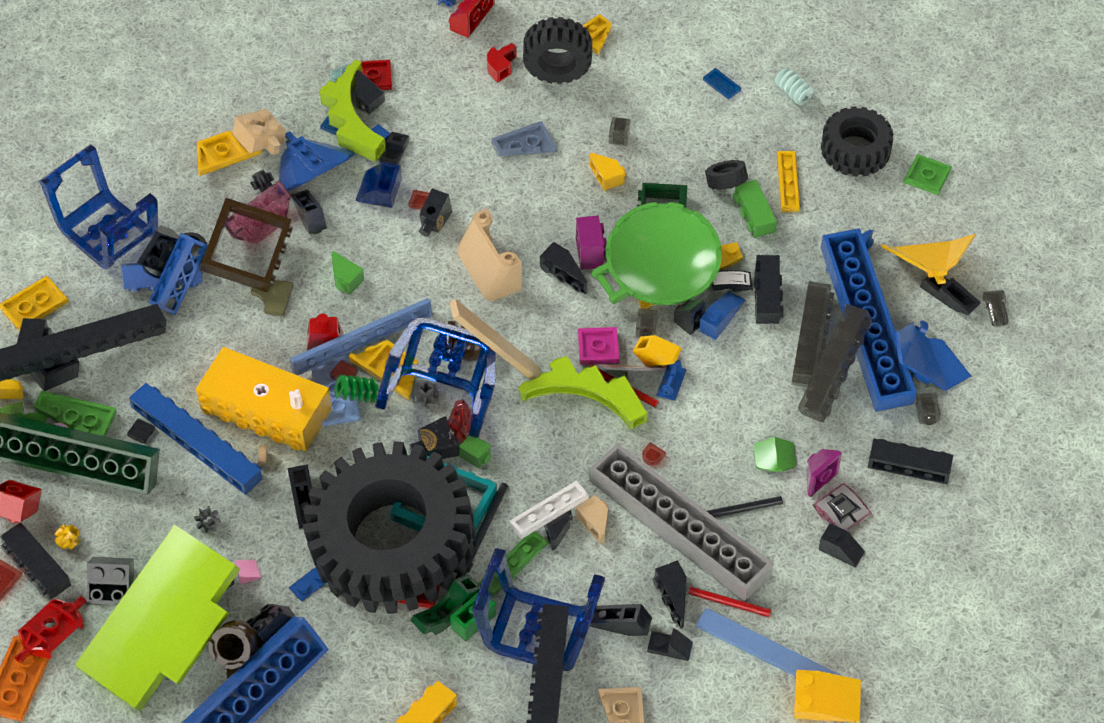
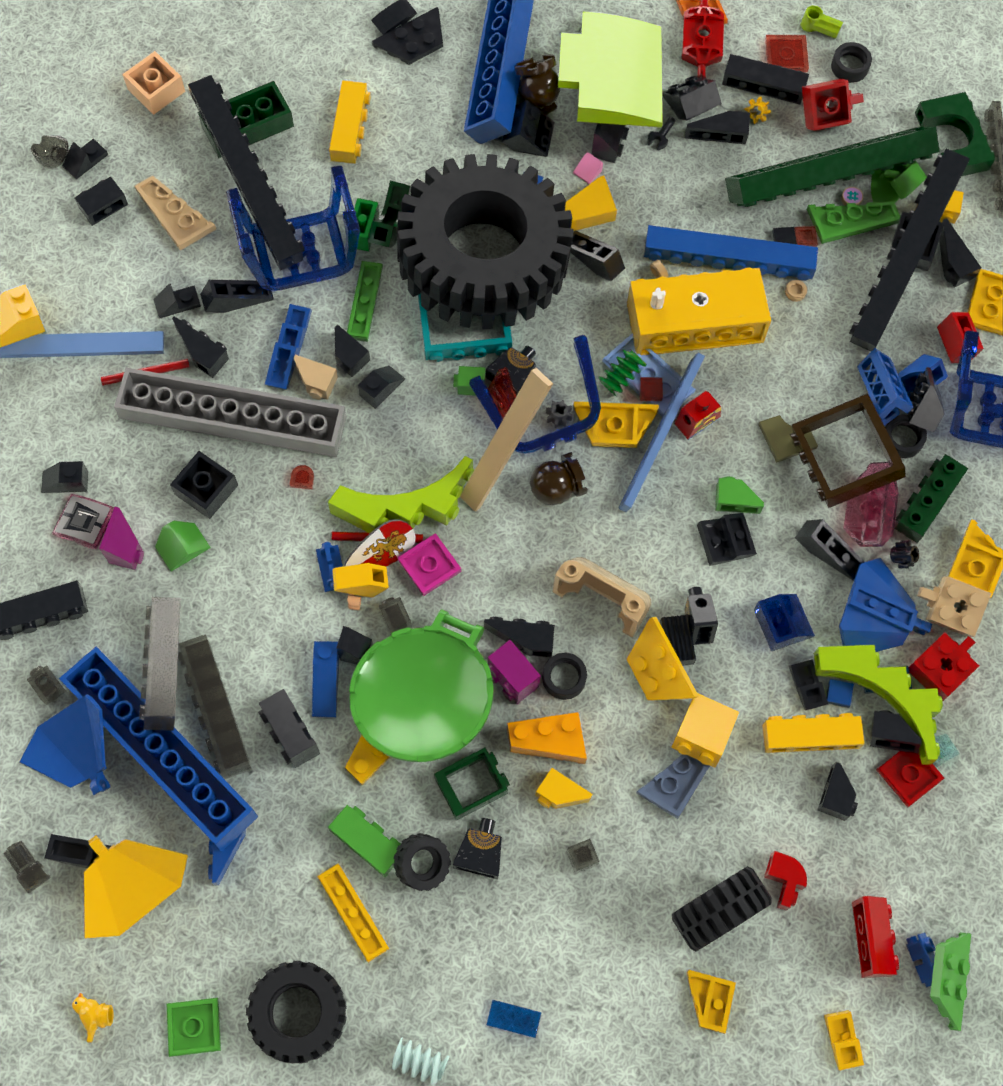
camera: 145 degrees right, 15 degrees up
(87, 284) = (952, 333): none -> red brick
(108, 539) = (723, 127): none -> black slope
(123, 423) = (806, 236): none -> clear red tile
(169, 388) = (796, 290): none -> tan tile
(207, 203) = (931, 498): none -> dark green brick
(211, 523) = (656, 187): black gear -> none
(274, 534) = (592, 205): none -> yellow slope
(298, 110) = (953, 657): none -> red hinge
(374, 256) = (726, 539): none -> black slope
(417, 120) = (813, 733): none -> yellow brick
(418, 199) = (732, 636): clear red tile -> none
(430, 83) = (838, 794): none -> black slope
(461, 212) = (680, 636): none -> black brick
(485, 525) = (418, 345): black bar -> none
(487, 151) = (705, 730): none -> yellow brick
(488, 194) = (658, 666): none -> yellow wing
(545, 484) = (379, 385): none -> black slope
(548, 509) = (357, 349): white tile -> none
(554, 220) = (575, 661): none -> black tyre
(591, 199) = (549, 737): none -> light orange wedge
(599, 557) = (288, 345): none -> blue slope
(684, 166) = (480, 851): none -> black torso
(733, 478) = (204, 484): none -> black brick
(734, 279) = (335, 730): slope -> none
(746, 506) = (162, 490): black bar -> none
(990, 207) = (93, 1014): none -> yellow animal

